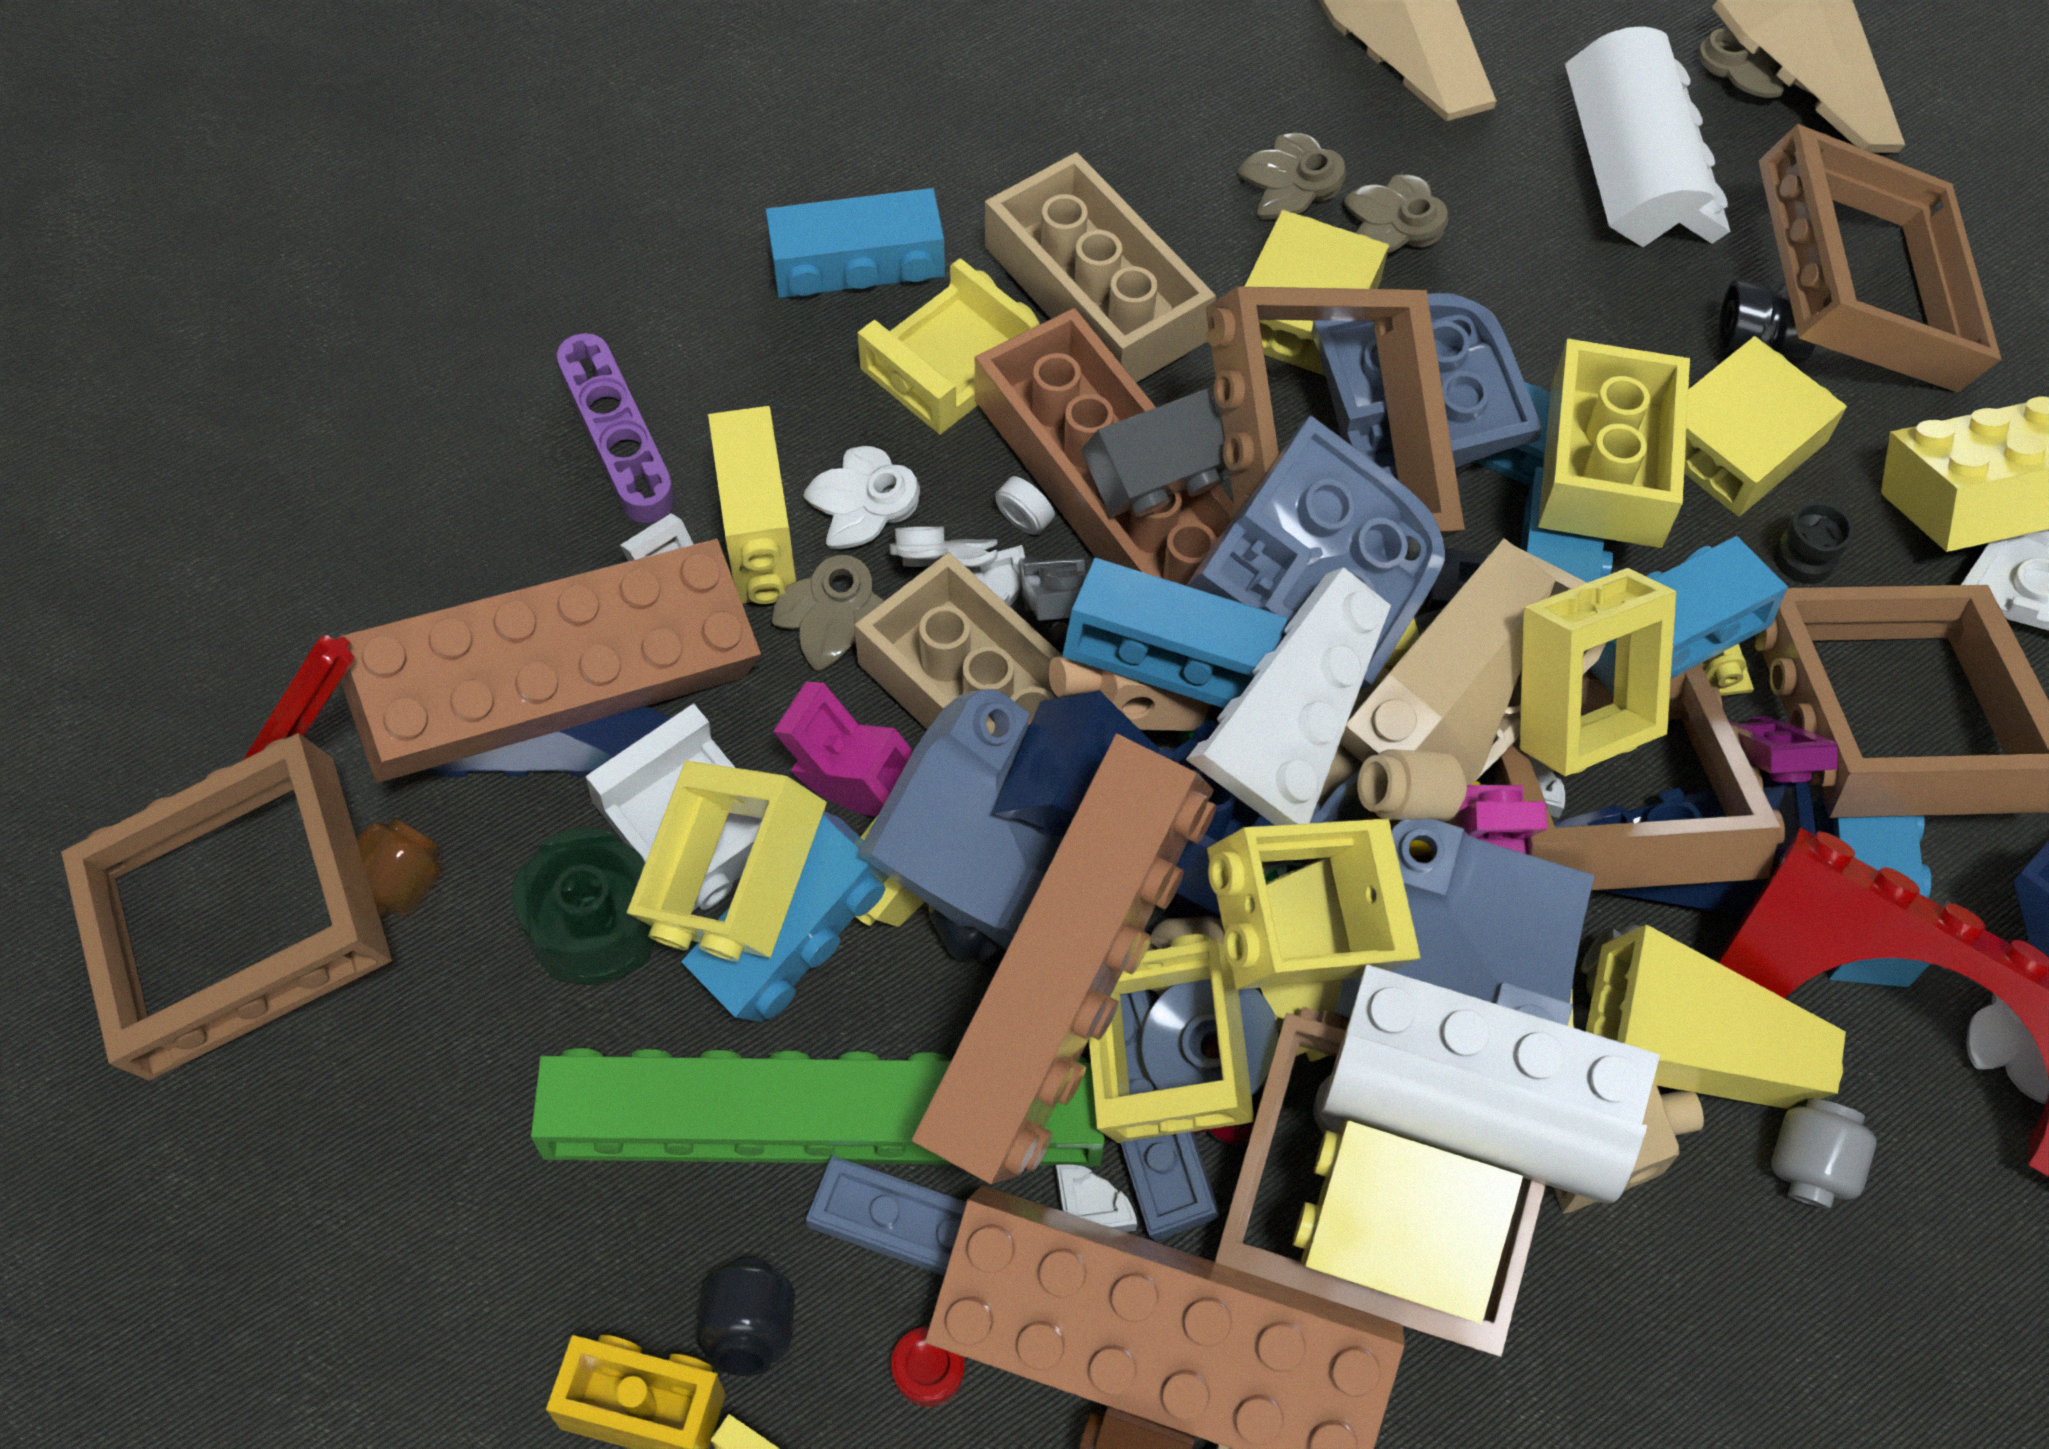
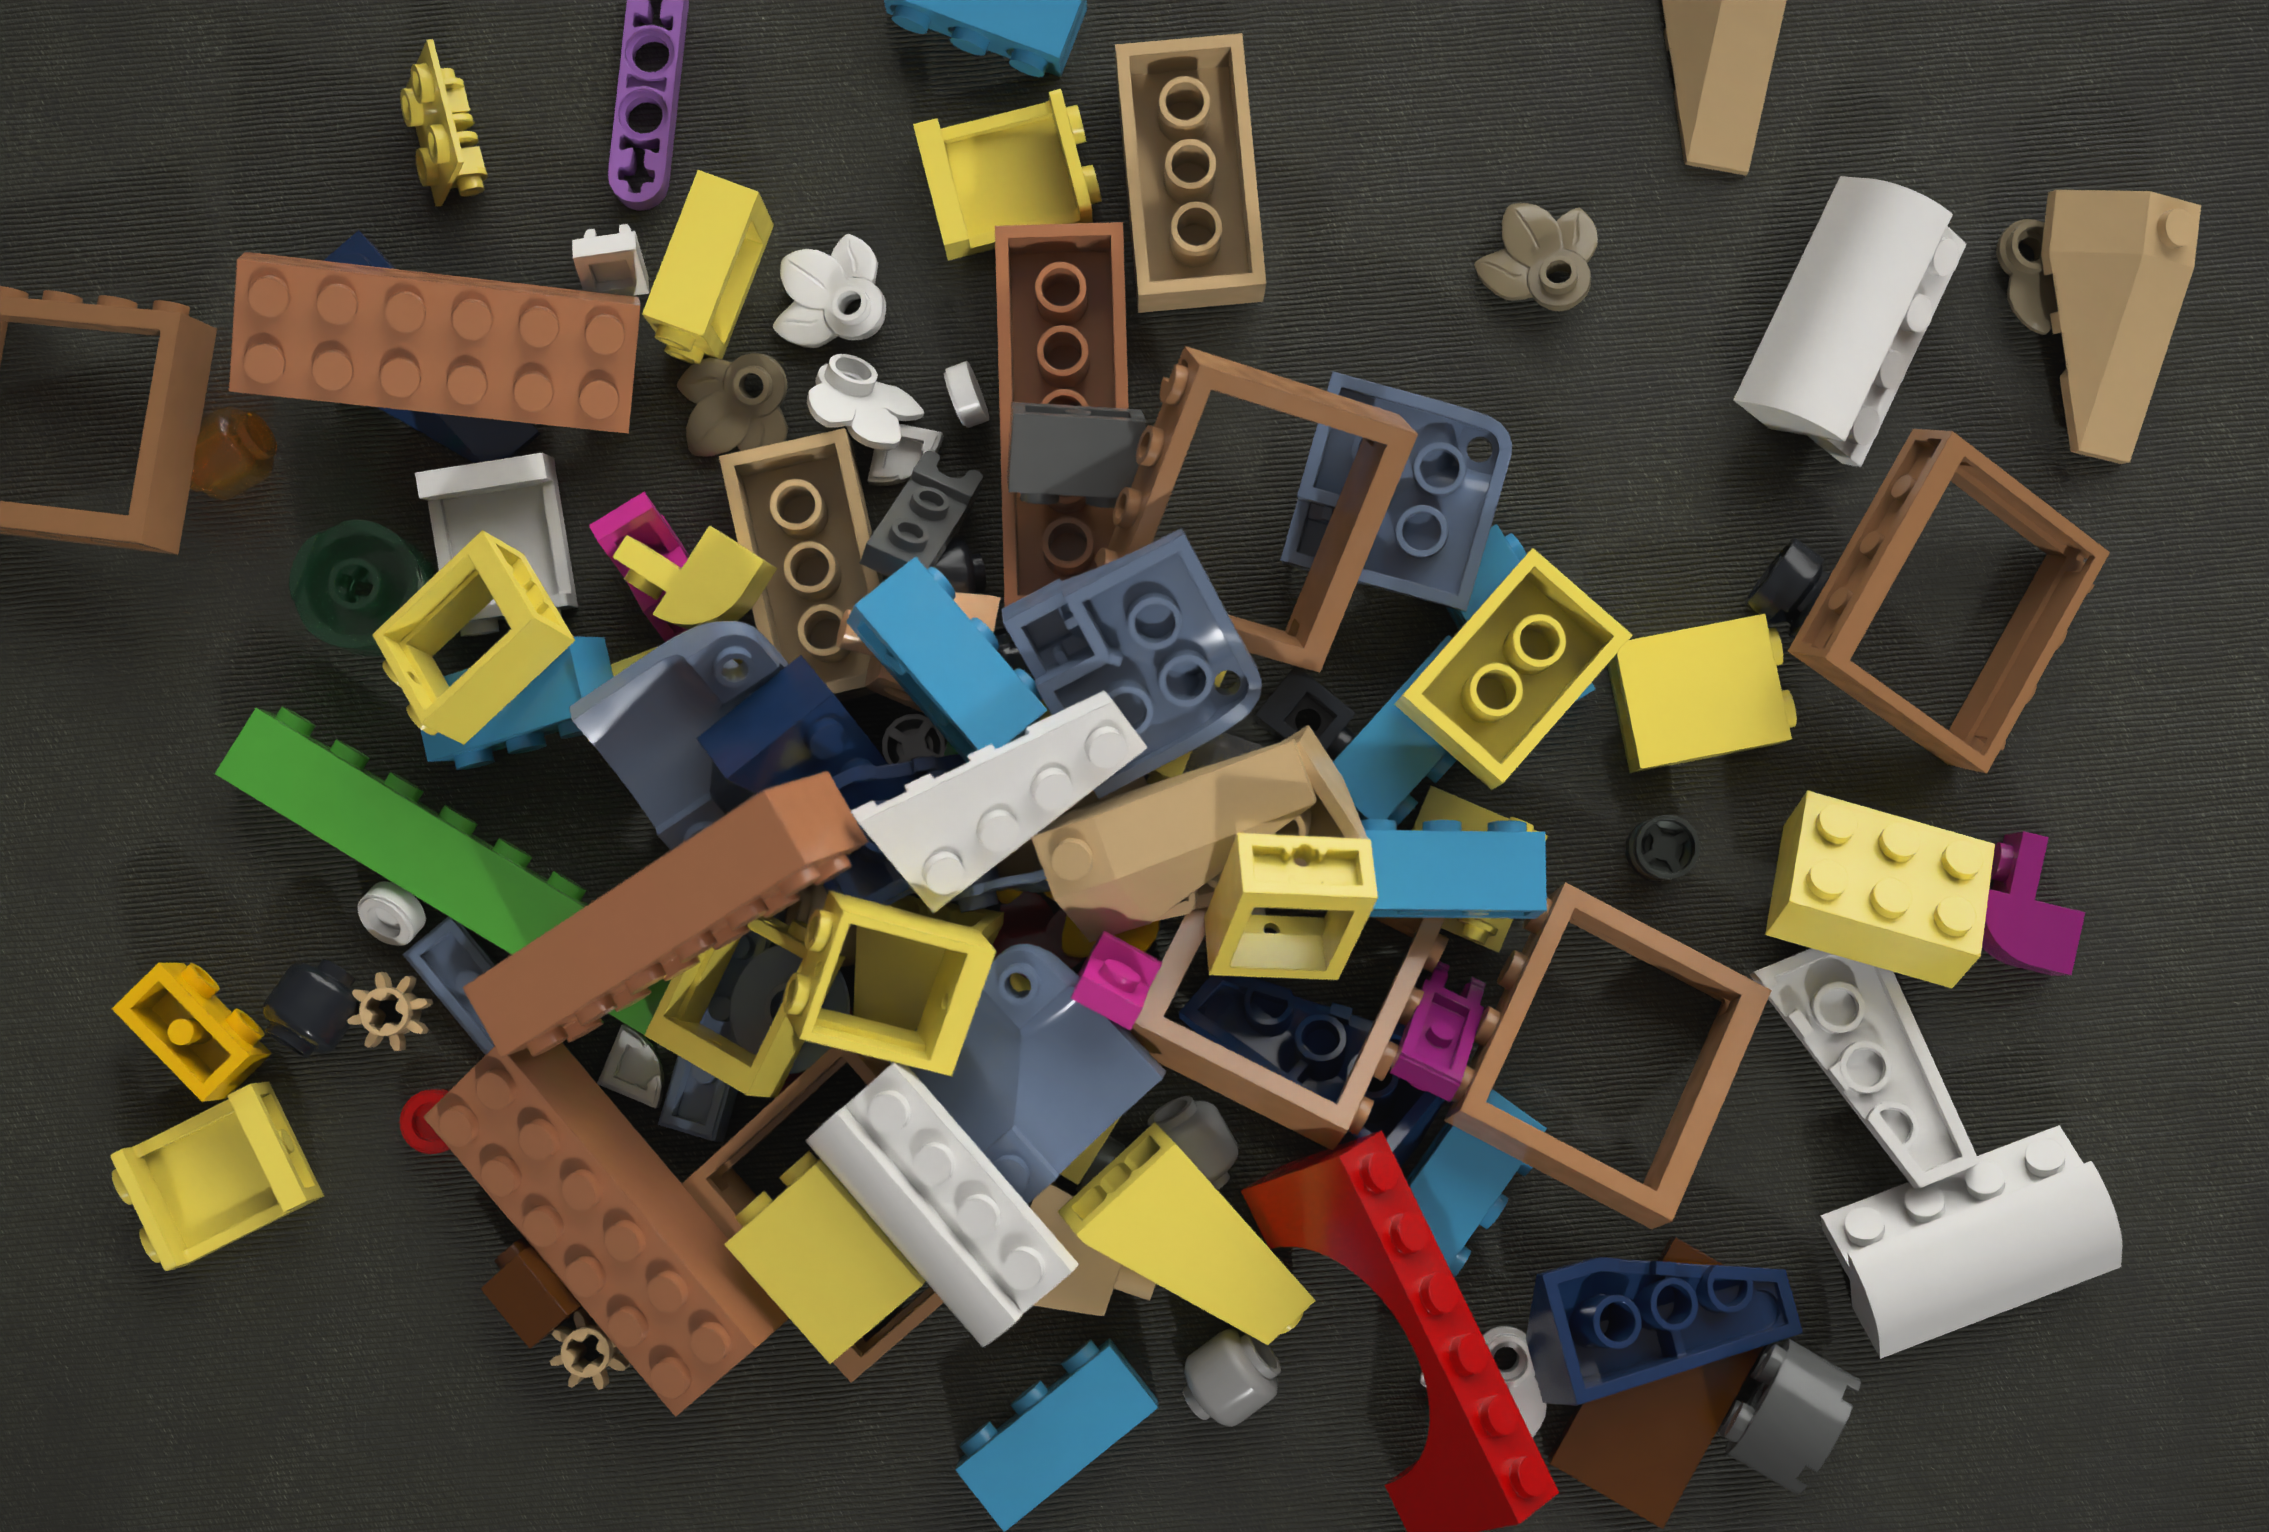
camera: 30 degrees right, 25 degrees up
(307, 692) = (191, 285): red axle -> none
(452, 519) = (440, 111): none -> light yellow hinge
(774, 1184) = (391, 913): none -> white tile
(805, 1274) = (372, 1017): none -> tan gear
(917, 693) = (713, 585): none -> light yellow brick
(1293, 174) = (1465, 144): dark tan plate -> none
(1311, 256) = (1388, 303): light yellow brick -> none
(1412, 785) = (1047, 926): tan brick -> none
(1712, 1301) = (1054, 1432): none -> dark azure brick

